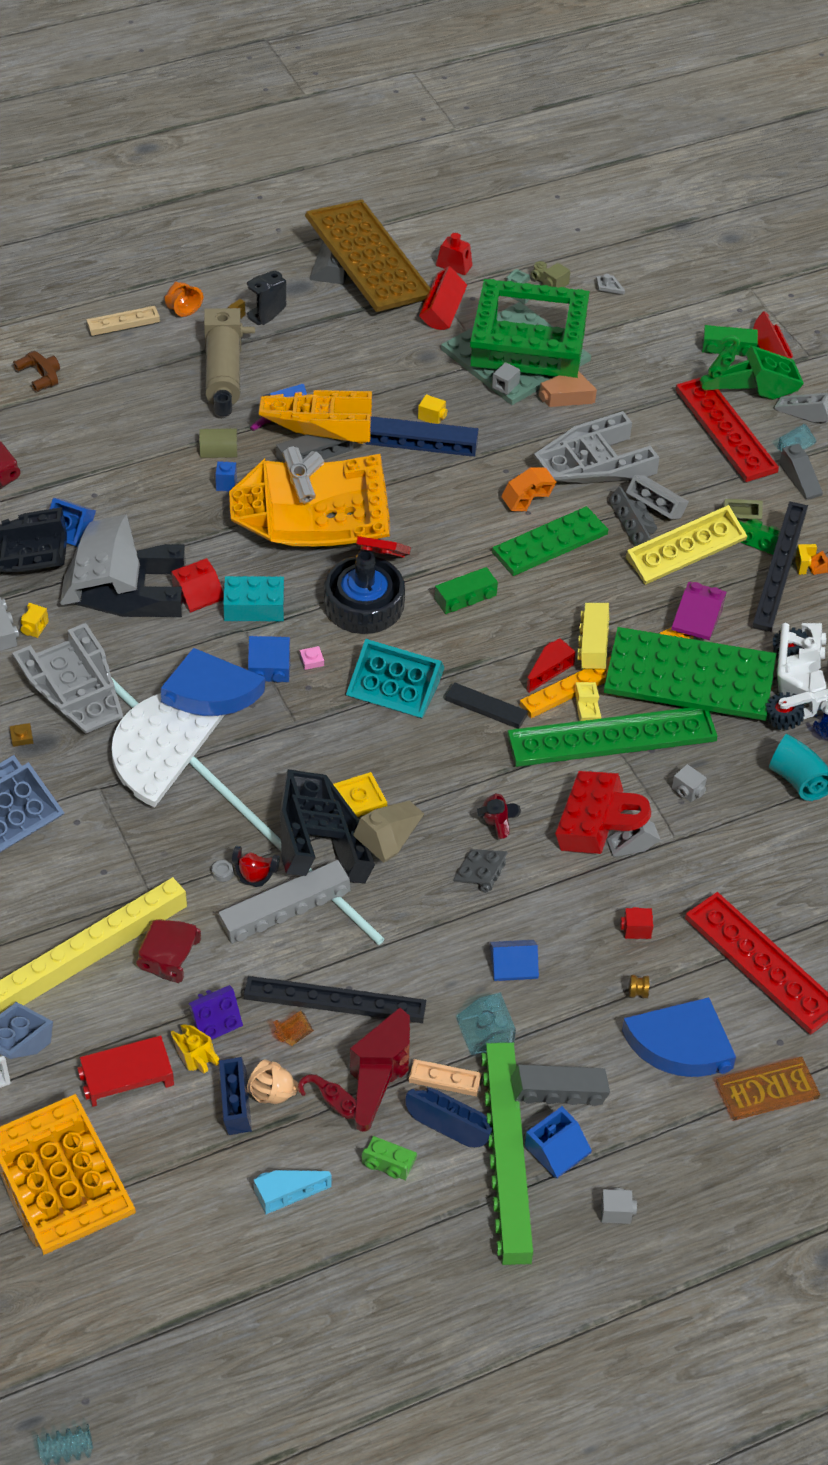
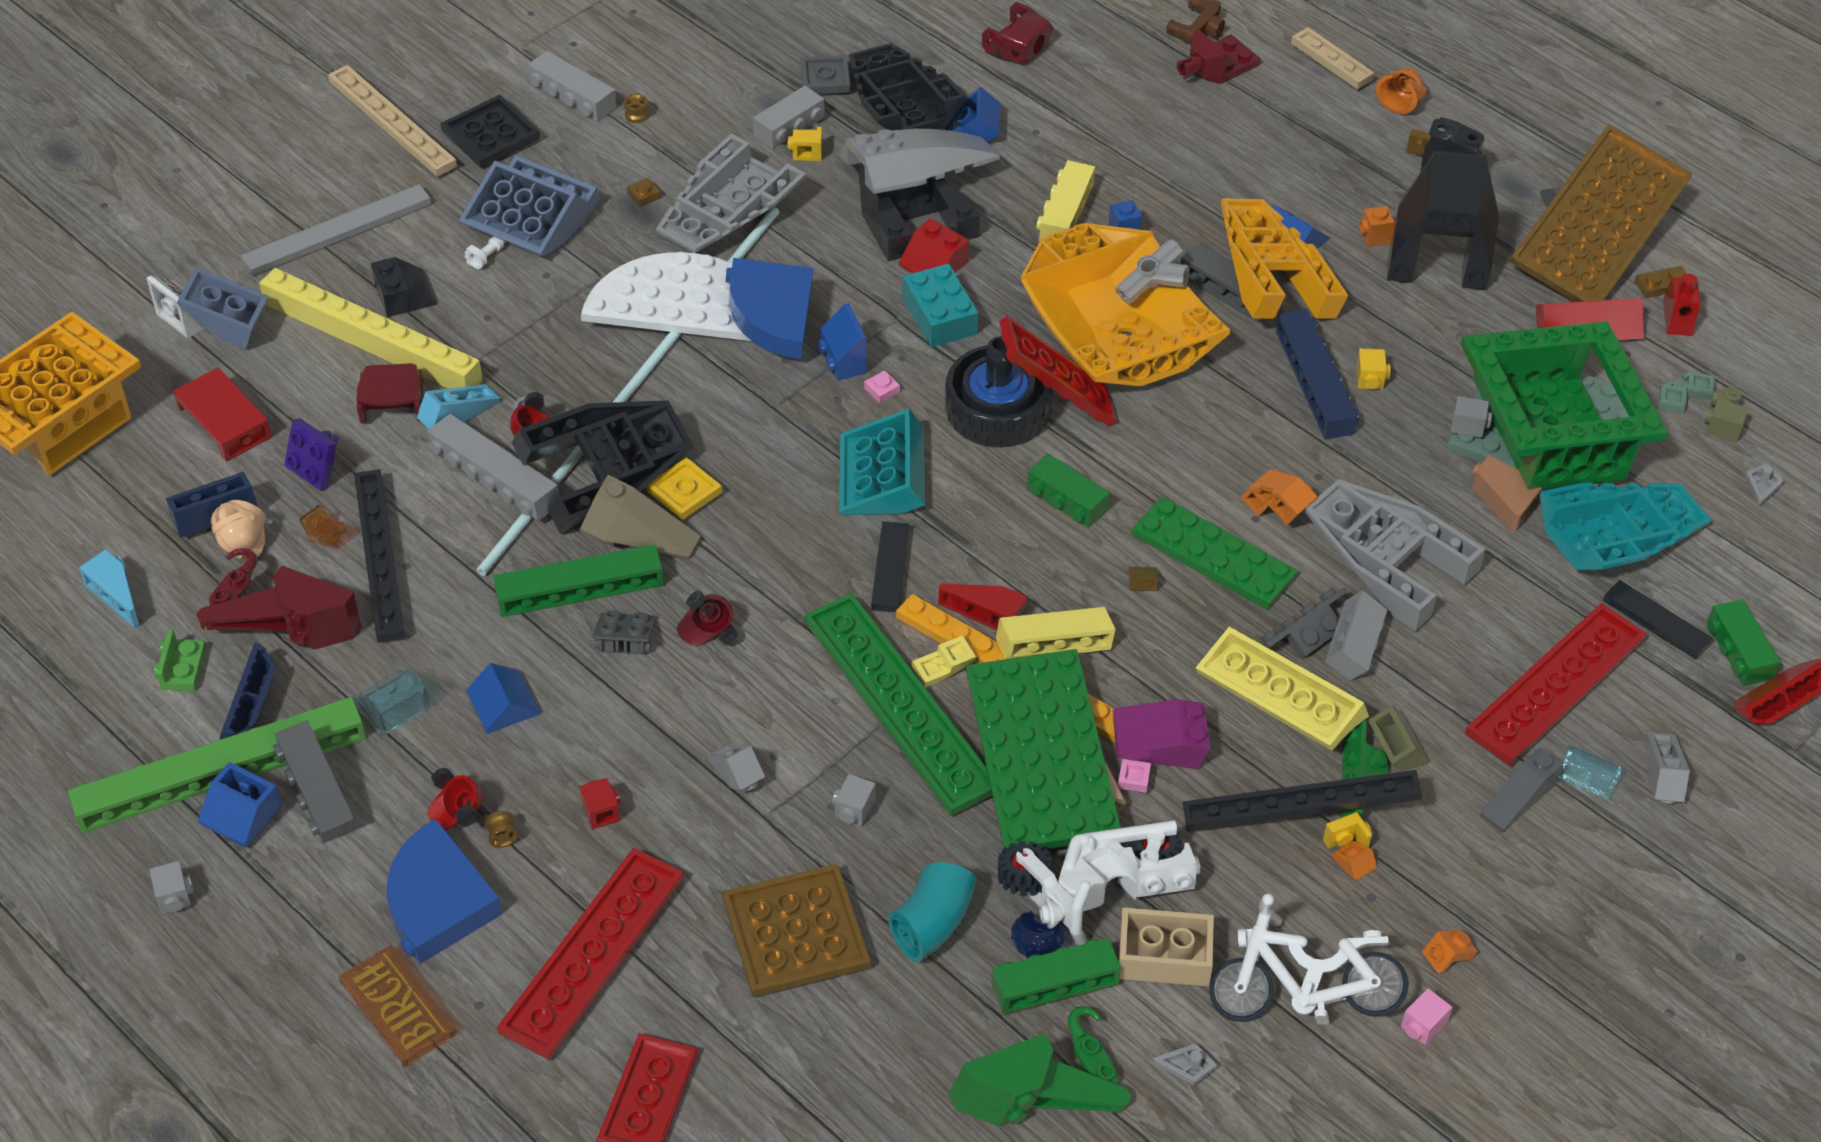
camera: 70 degrees right, 0 degrees up
(34, 858) = (478, 258): none -> white piece
(43, 918) = (401, 286): none -> black slope
(86, 375) = (1217, 60): none -> dark red plate
(188, 500) = (1067, 198): none -> light yellow brick
(194, 1048) = (262, 454): yellow hinge -> none
(204, 912) = (460, 402): none -> medium azure slope
(218, 443) = (1179, 199): olive brick -> none
(223, 350) = (1359, 140): dark tan piece -> none
(307, 355) = (1377, 226): none -> orange brick
(354, 317) = (1448, 199): none -> black wedge
(423, 257) = (1657, 282): none -> pearl gold plate
(423, 882) = (578, 580): none -> green brick
(445, 1077) = (308, 679): light nougat tile -> none
(556, 581) = (1143, 578): none -> pearl gold slope
(597, 808) = (749, 705): red brick -> none
(611, 1004) = (457, 802): none -> red cap
(623, 352) = (1618, 524): none -> teal wedge
(687, 370) = (1658, 619): none -> black tile
(722, 637) = (1134, 775): none -> bright pink plate
(764, 370) = (1685, 686): green slope -> none
(782, 847) = (795, 930): none -> pearl gold plate

